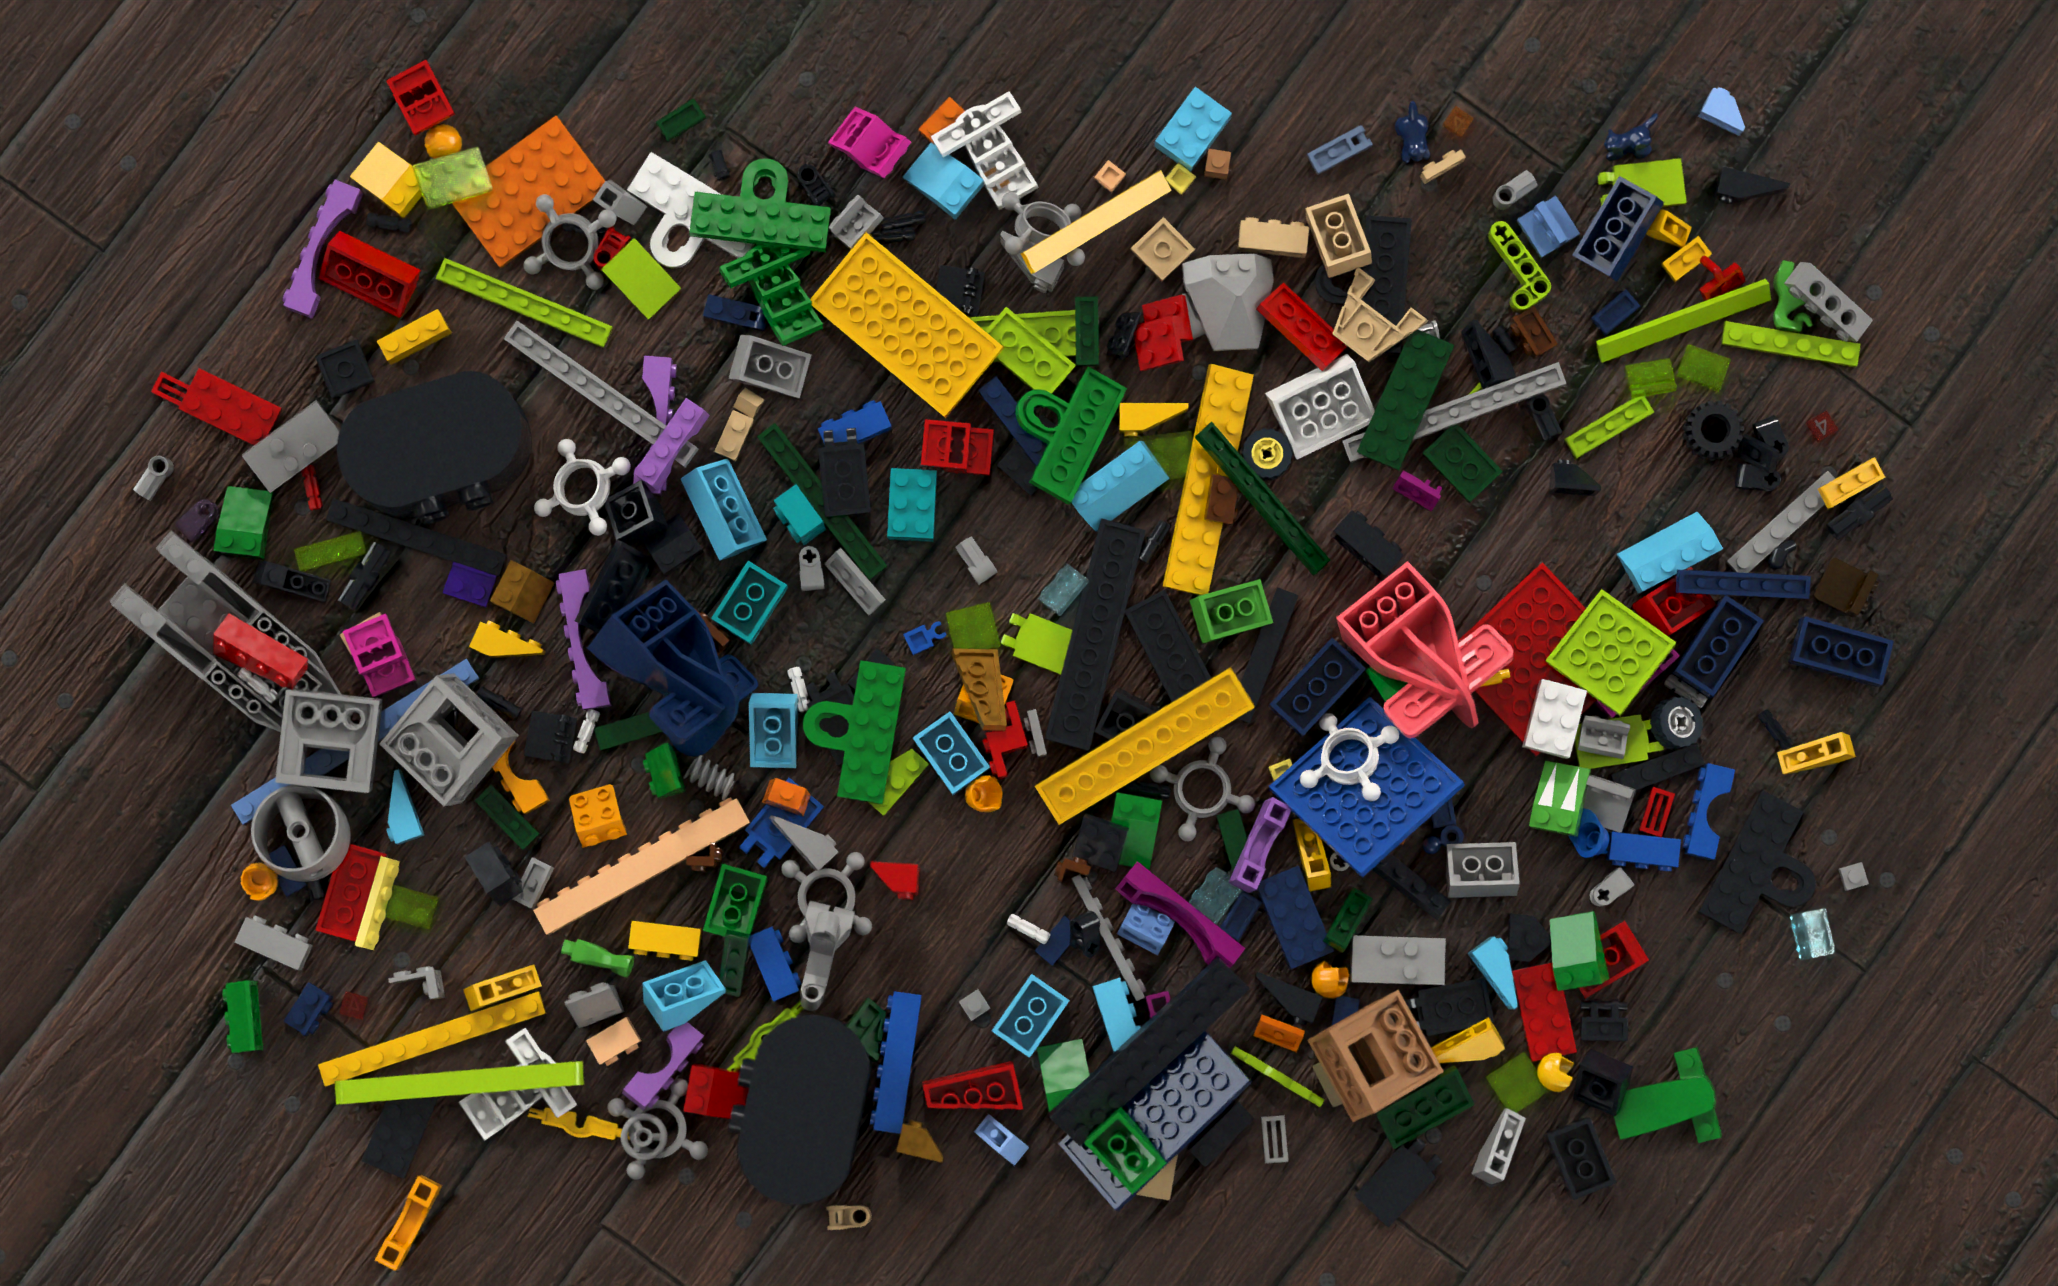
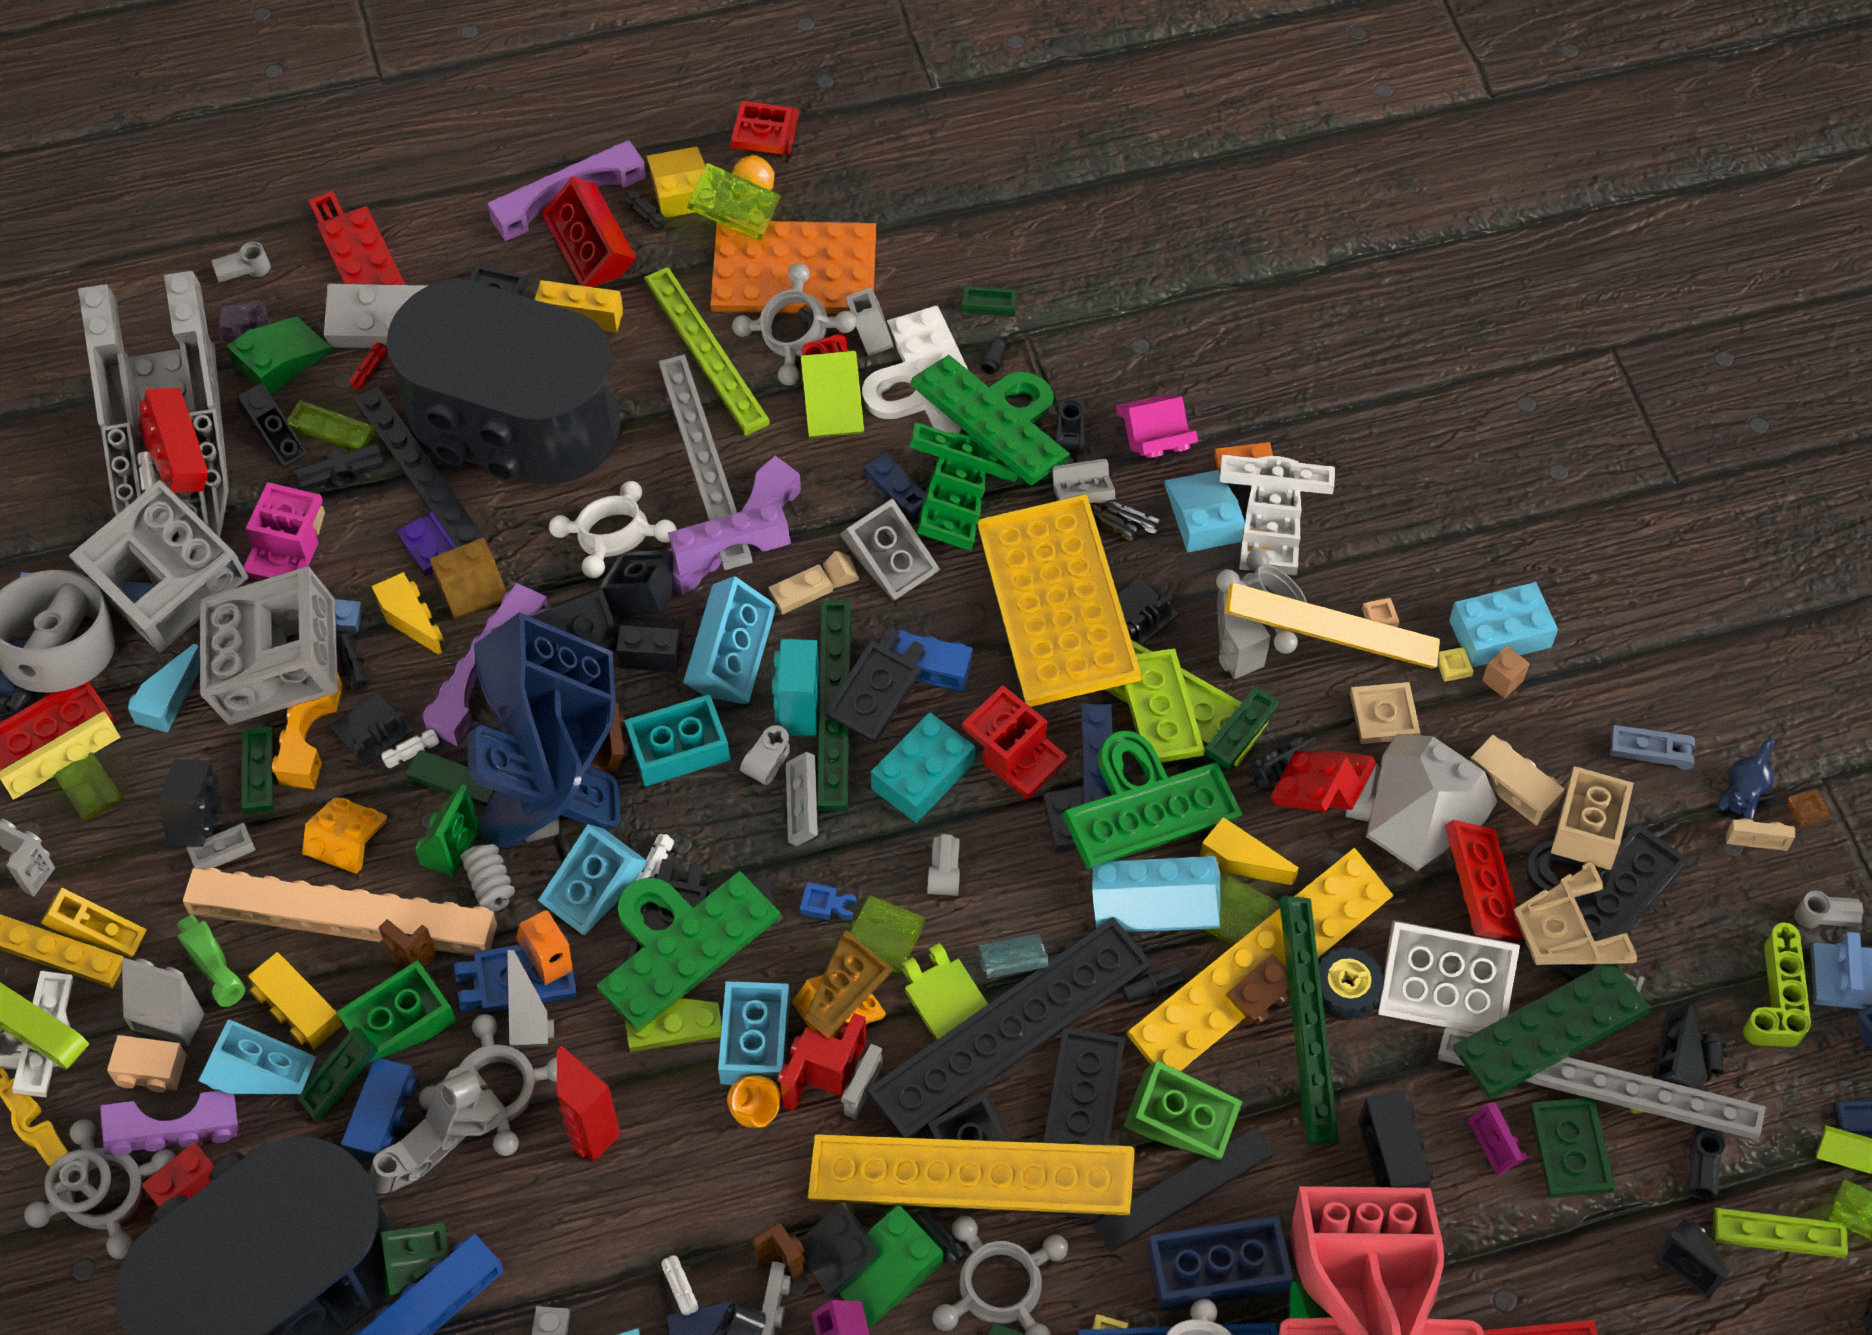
camera: 40 degrees right, 25 degrees down
(1533, 333) = (1752, 1068): reddish brown bracket -> none

